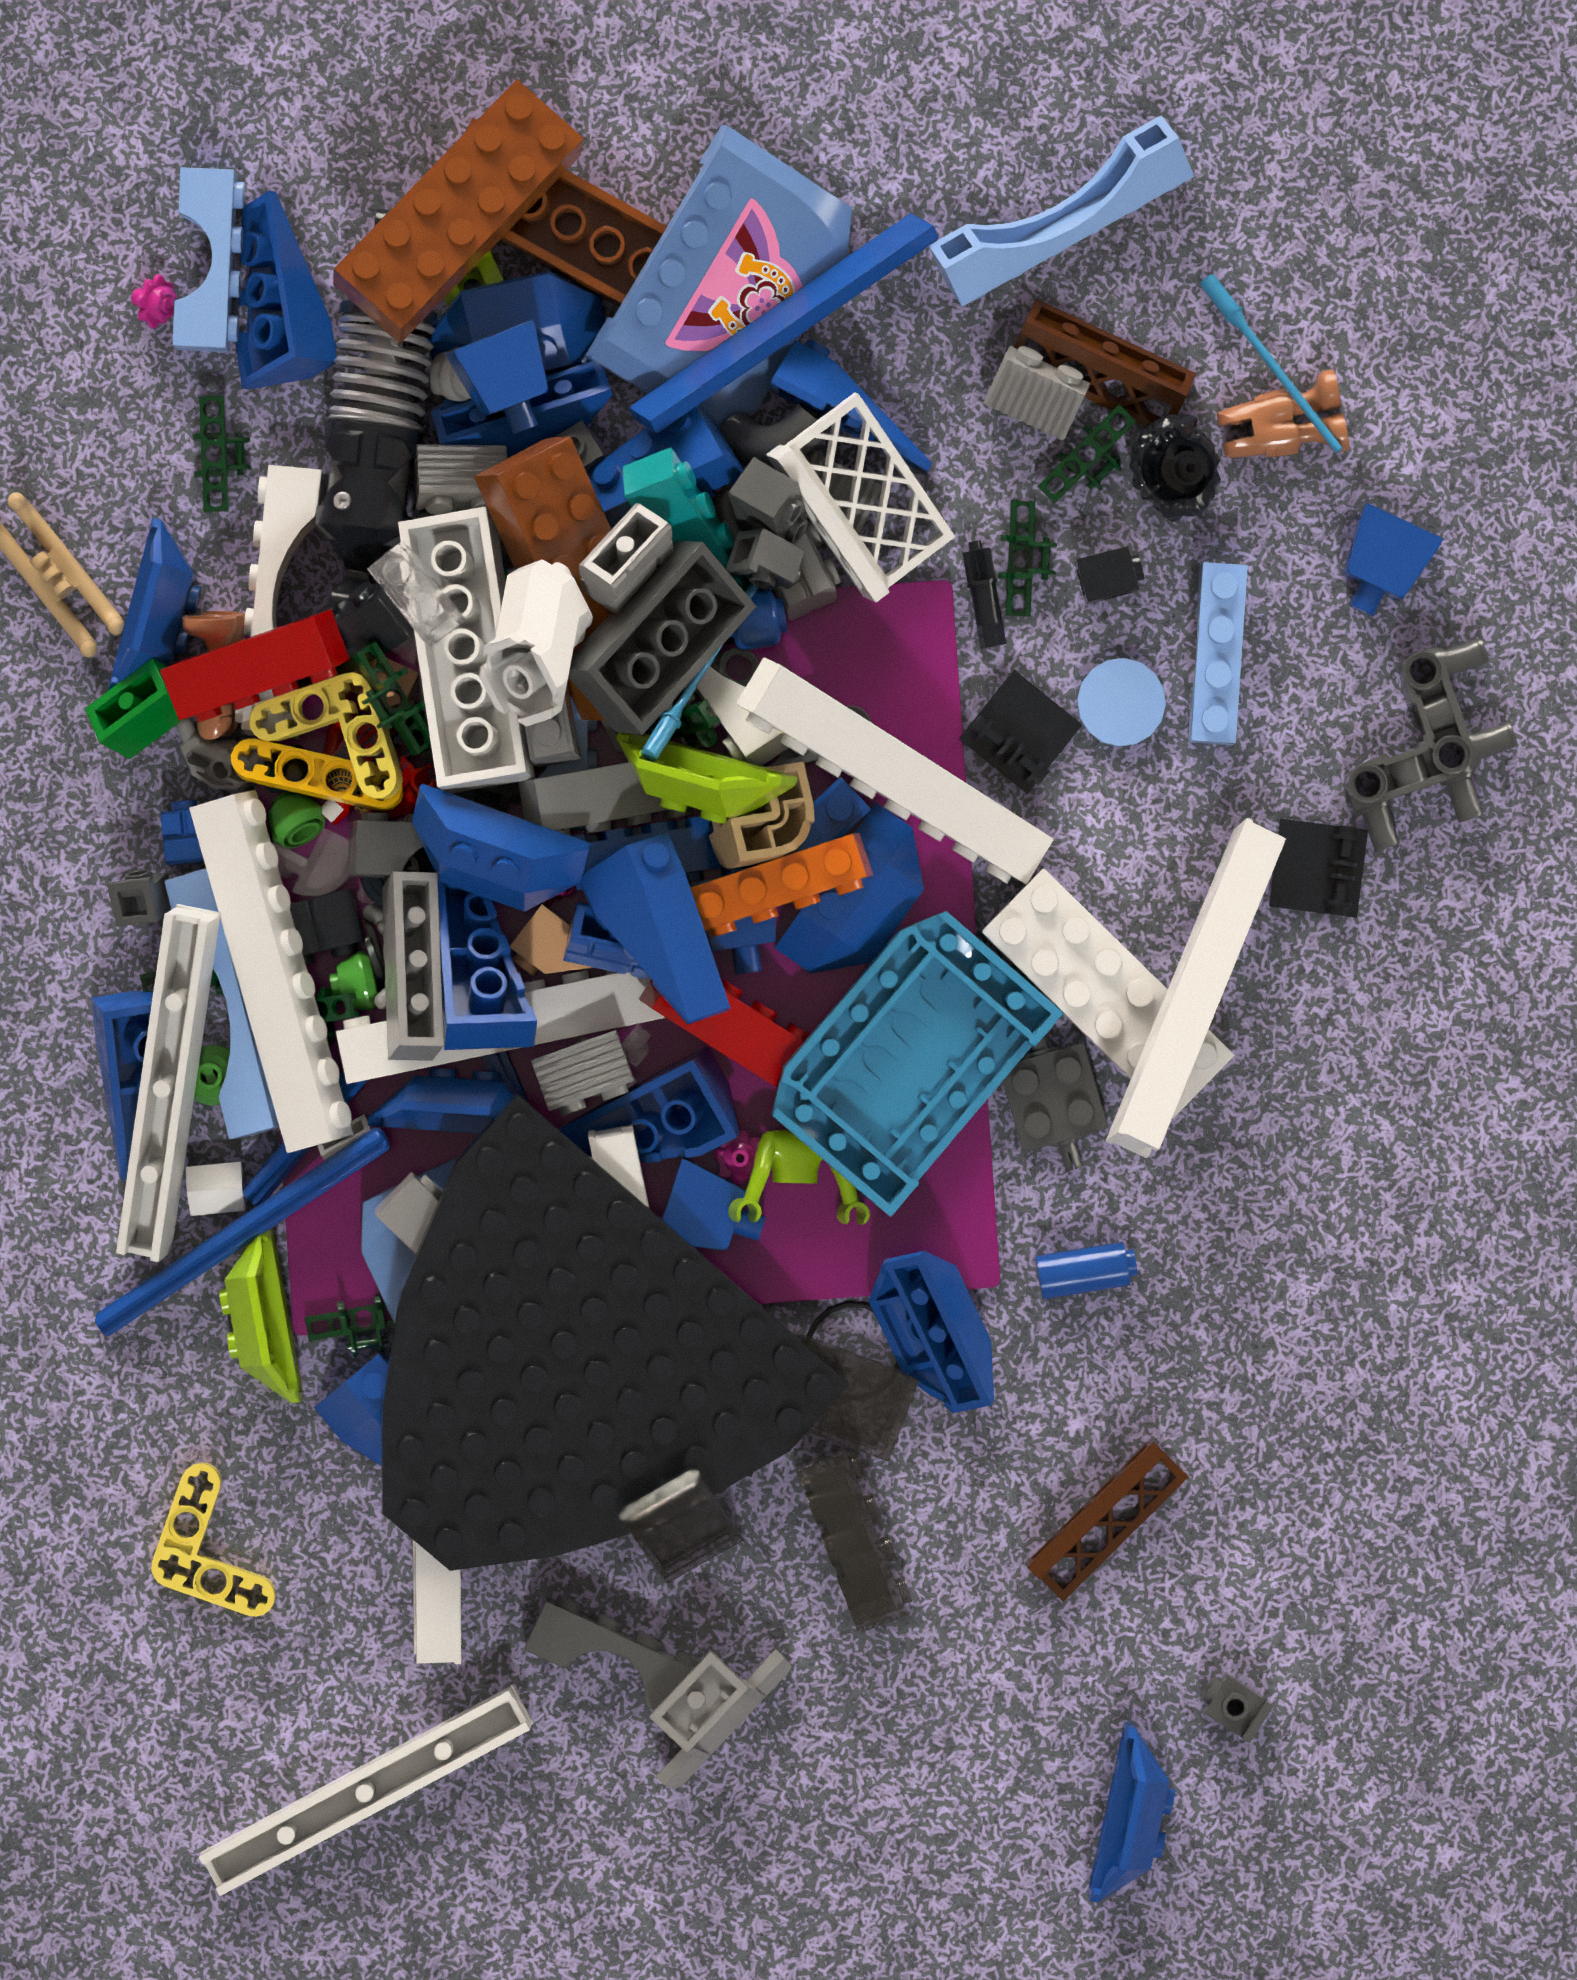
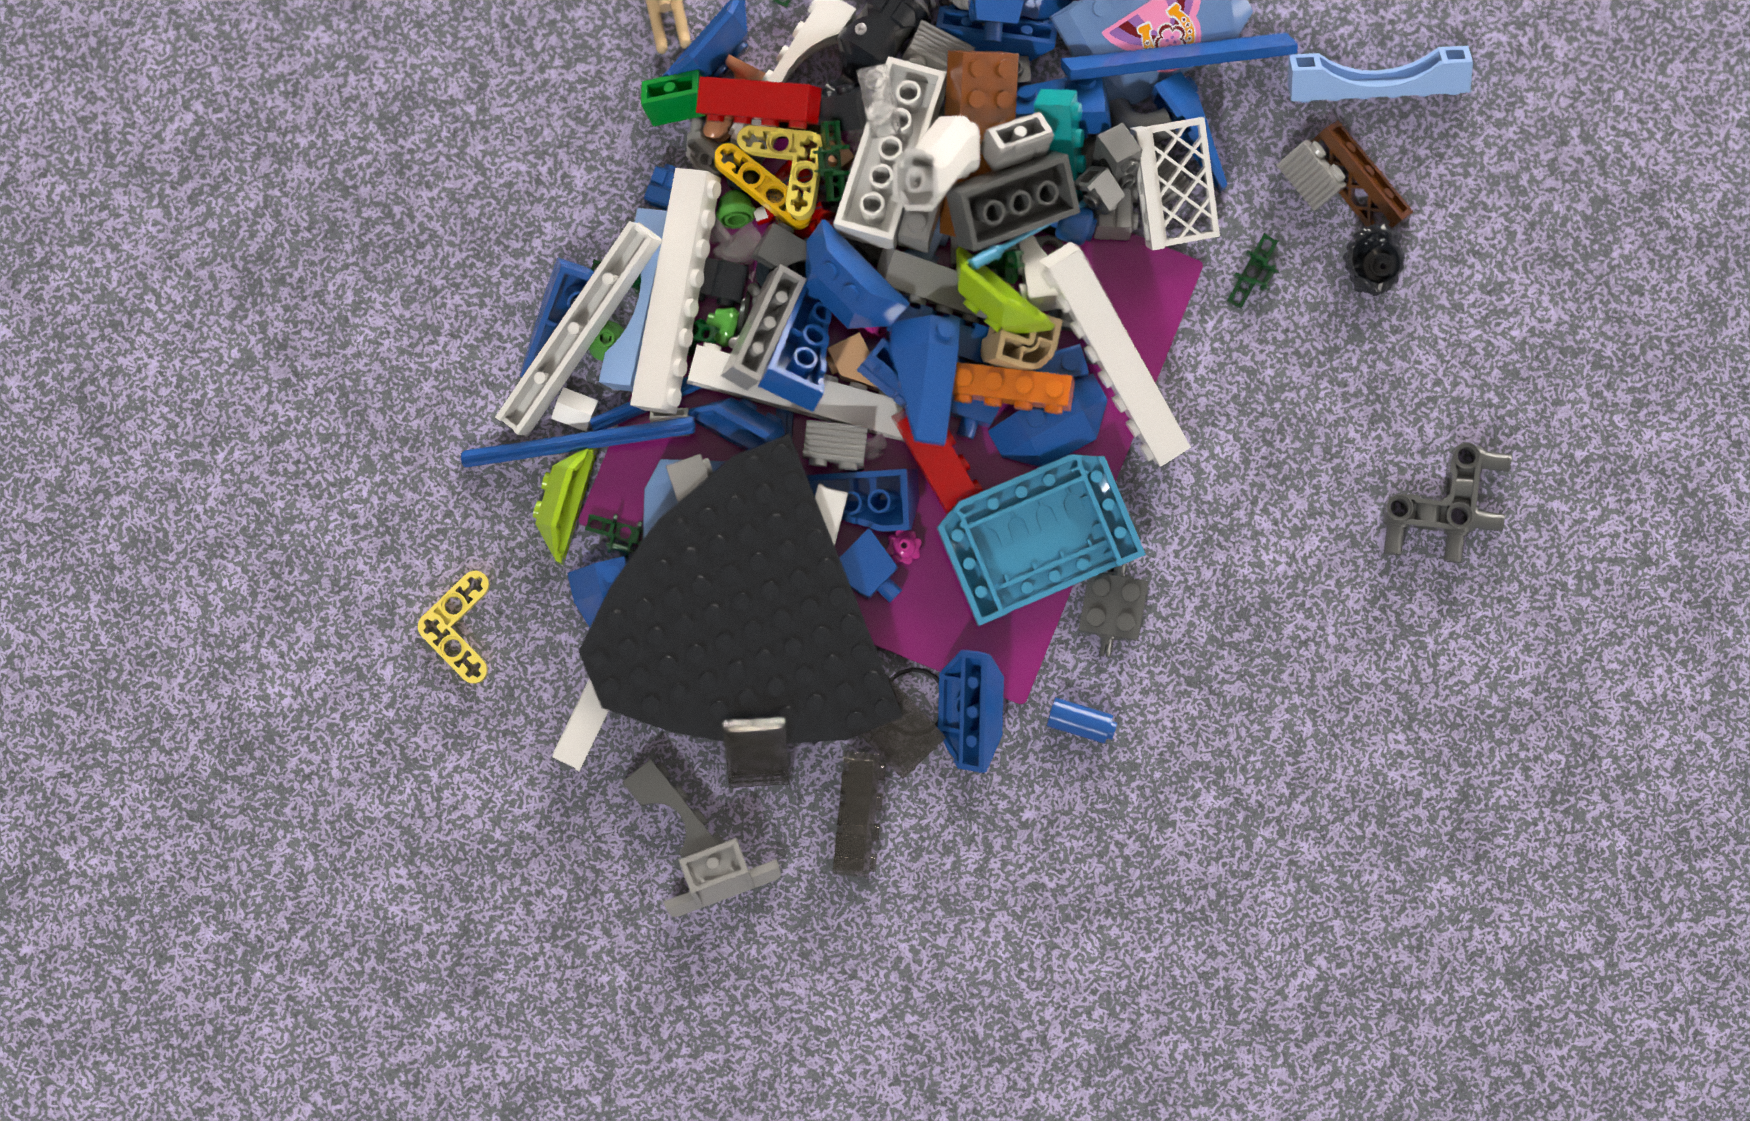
camera: 20 degrees right, 5 degrees down
(139, 898) = (616, 209): dark grey brick -> none
(366, 1790) = (481, 822): white tile -> none
(791, 1163) = (933, 565): lime piece -> none
(984, 595) = (1219, 283): black piece -> none
(1020, 732) = (1201, 374): black hinge -> none
(1090, 977) = (1177, 557): white brick -> none
(1095, 1509) = (1014, 871): reddish brown fence -> none
(1100, 448) = (1334, 229): dark green piece -> none
(1109, 574) = (1302, 305): black brick -> none
(1121, 702) = (1271, 387): light blue tile -> none
(1131, 1817) = (945, 1073): blue wedge -> none
(1196, 989) = (1234, 578): white tile -> none
(1218, 653) = (1345, 385): light blue arch -> none
(1235, 316) = (1454, 188): dark azure piece -> none
(1254, 1709) = (1045, 1048): dark grey brick -> none
(1273, 421) = (1447, 263): nougat piece -> none
(1319, 868) = (1344, 546): black hinge -> none
(1386, 557) = (1476, 377): blue torso -> none

